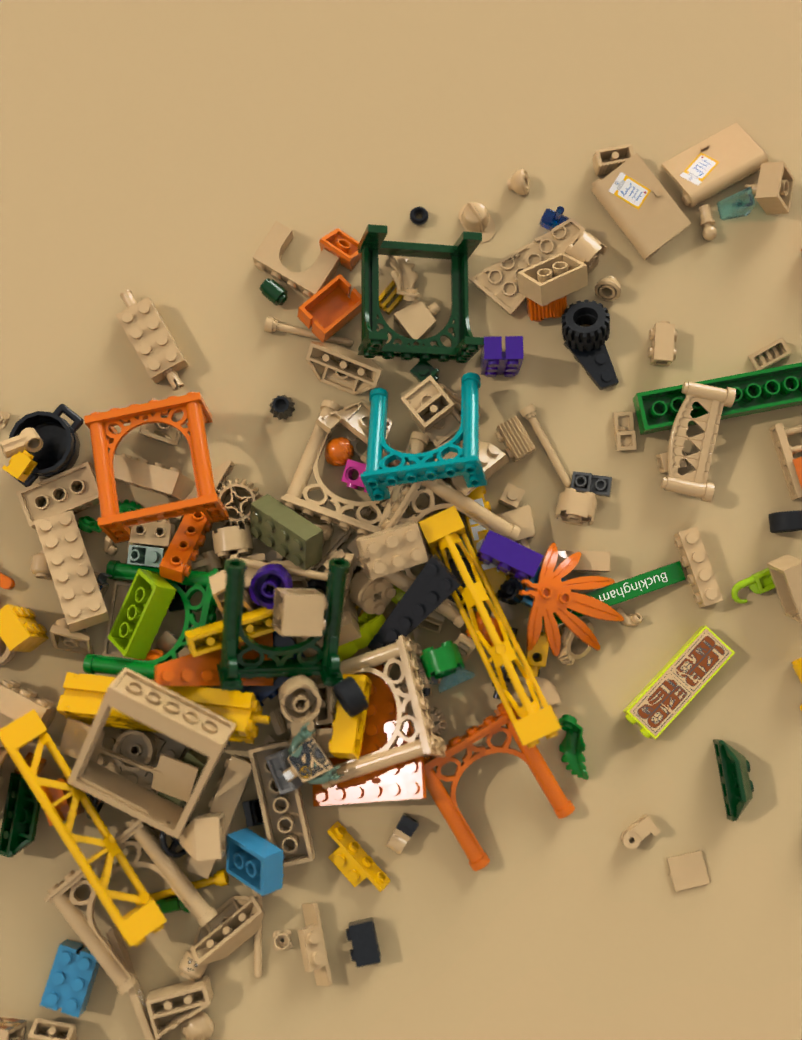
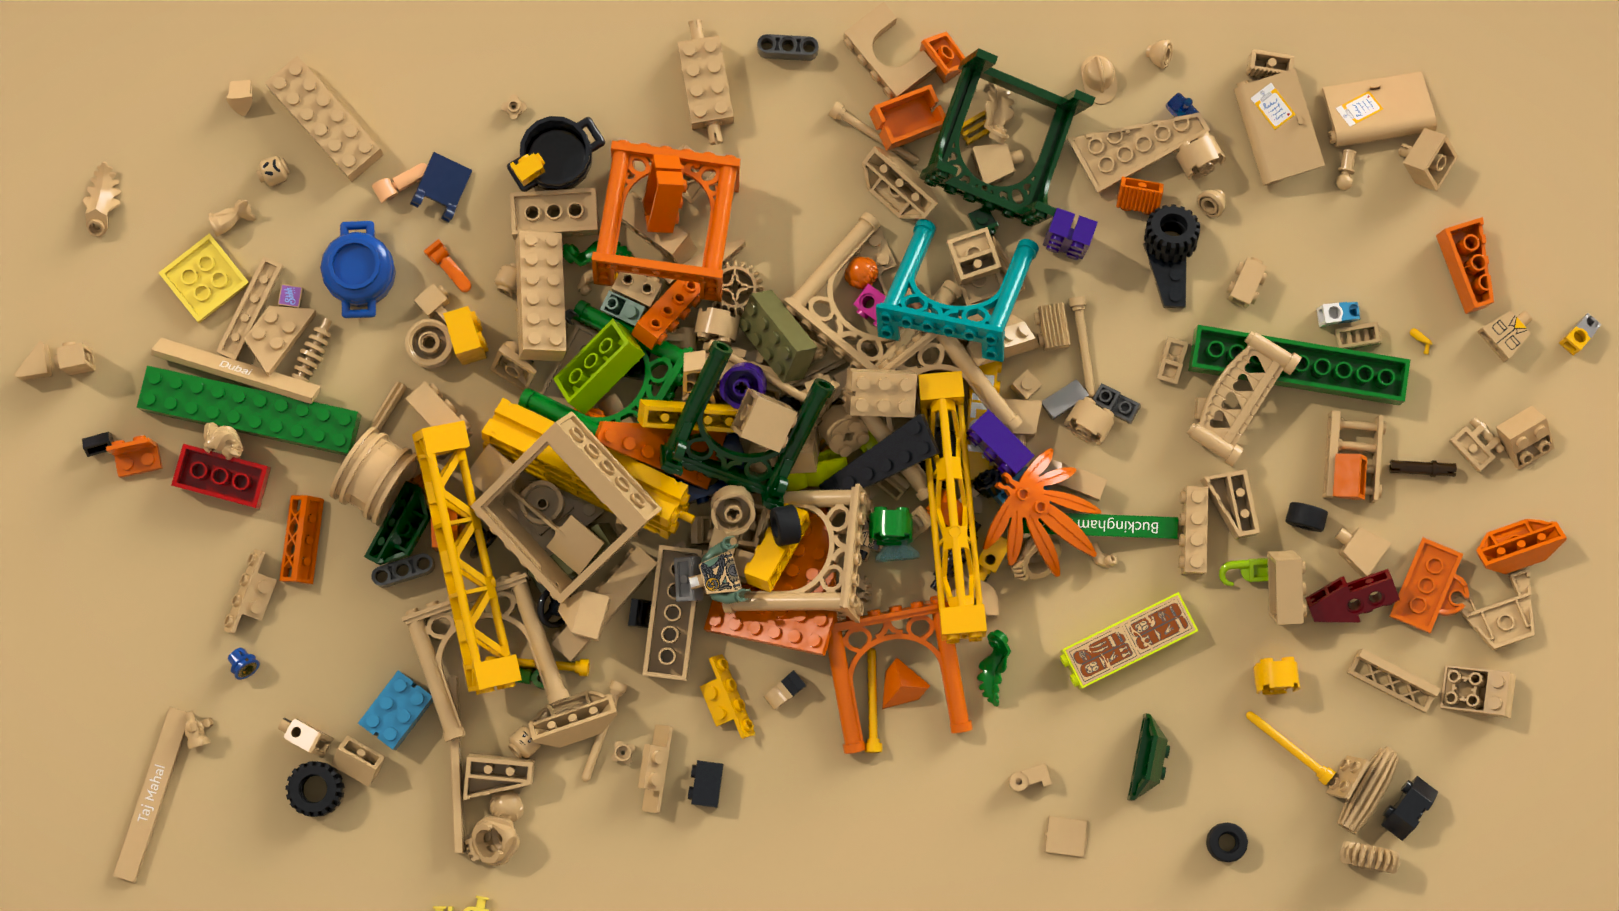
camera: 10 degrees right, 0 degrees up
(27, 440) = (543, 144): tan piece -> none
(28, 855) = (392, 570): none -> dark grey beam
(144, 445) = (664, 193): none -> orange piece
(201, 286) = (778, 52): none -> dark grey beam
(254, 861) = (626, 658): dark azure brick -> none
(273, 292) = (853, 76): dark green brick -> none
(282, 407) = (818, 203): black piece -> none
(354, 418) = (890, 242): tan wing -> none
(419, 211) = (1038, 44): black plate -> none
(494, 851) = (873, 743): none -> yellow piece
(500, 791) = (902, 685): none -> orange slope
(547, 496) = (1064, 399): none -> light grey slope
(552, 279) = (1154, 171): tan brick -> none
(723, 531) = (1234, 502): none -> tan wedge
(737, 205) = (1384, 162): clear light blue slope -> none
(746, 342) = (1338, 313): none -> leg

